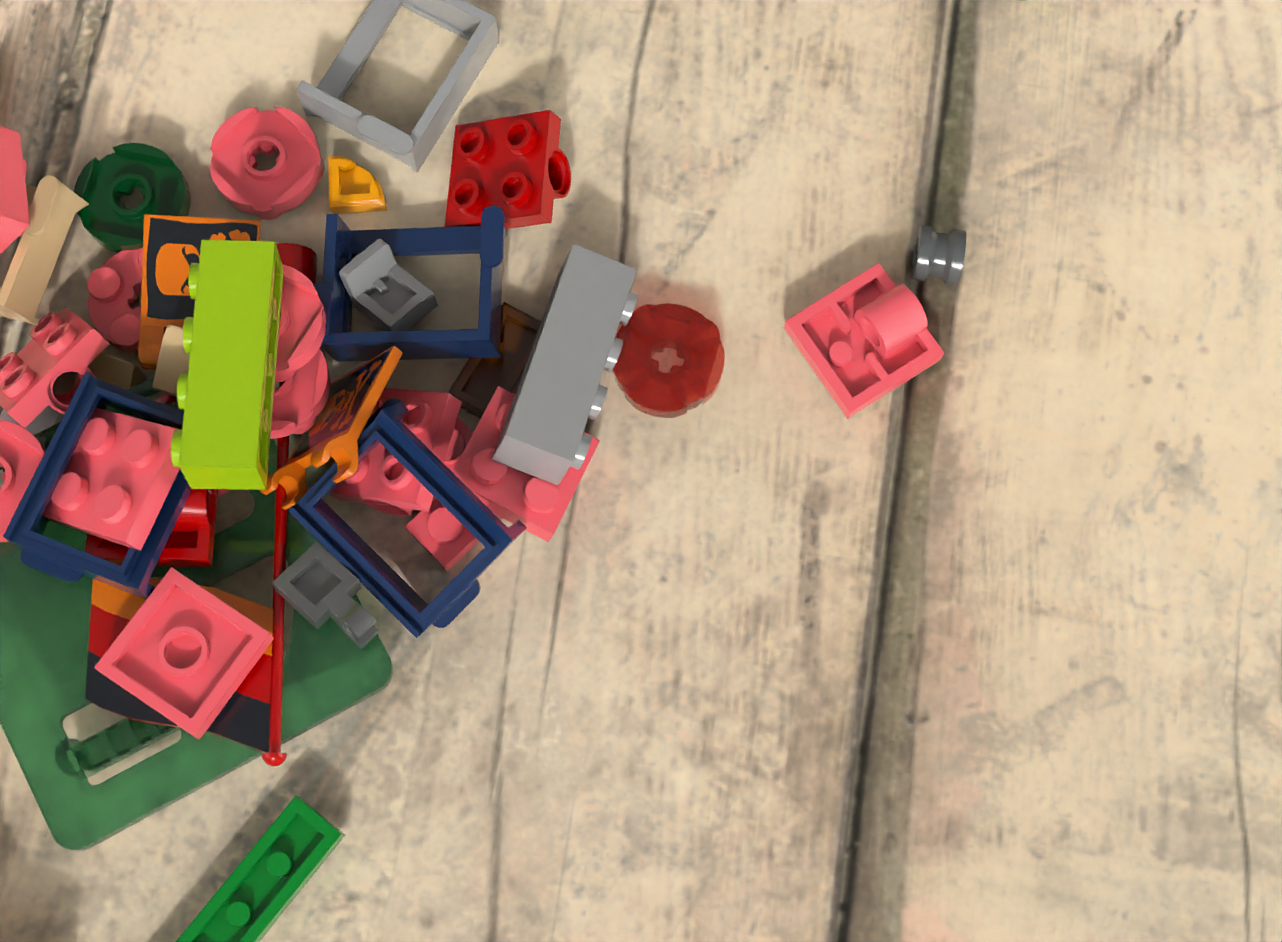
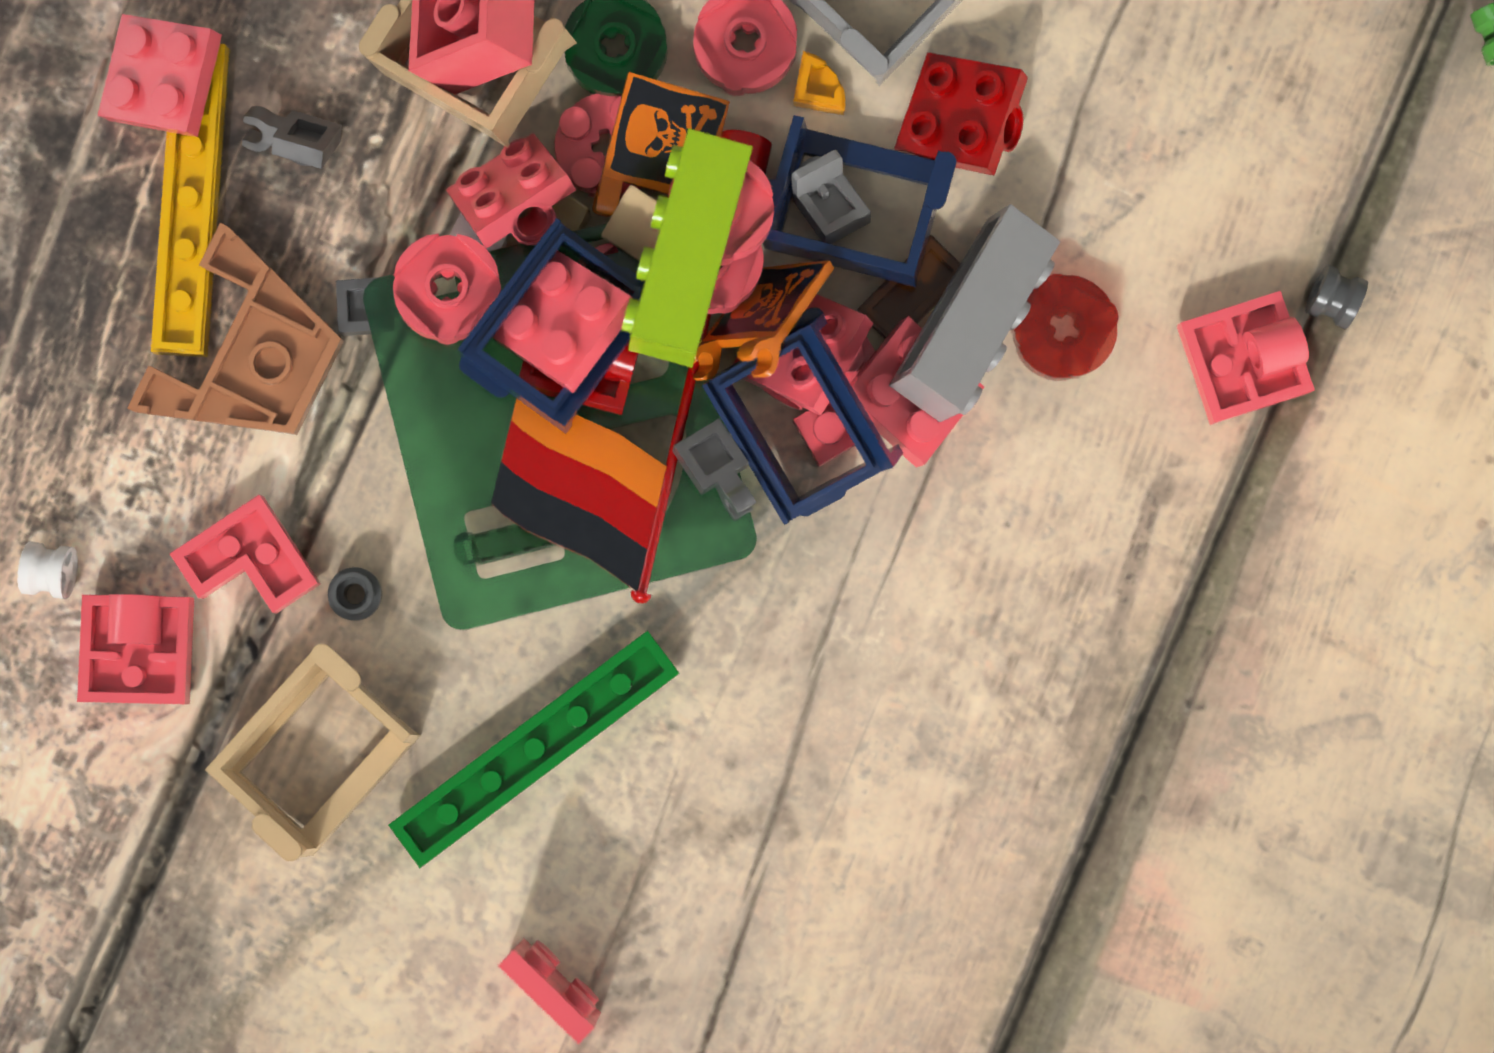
camera: 10 degrees right, 10 degrees up
(184, 653) = (586, 487): coral plate -> none

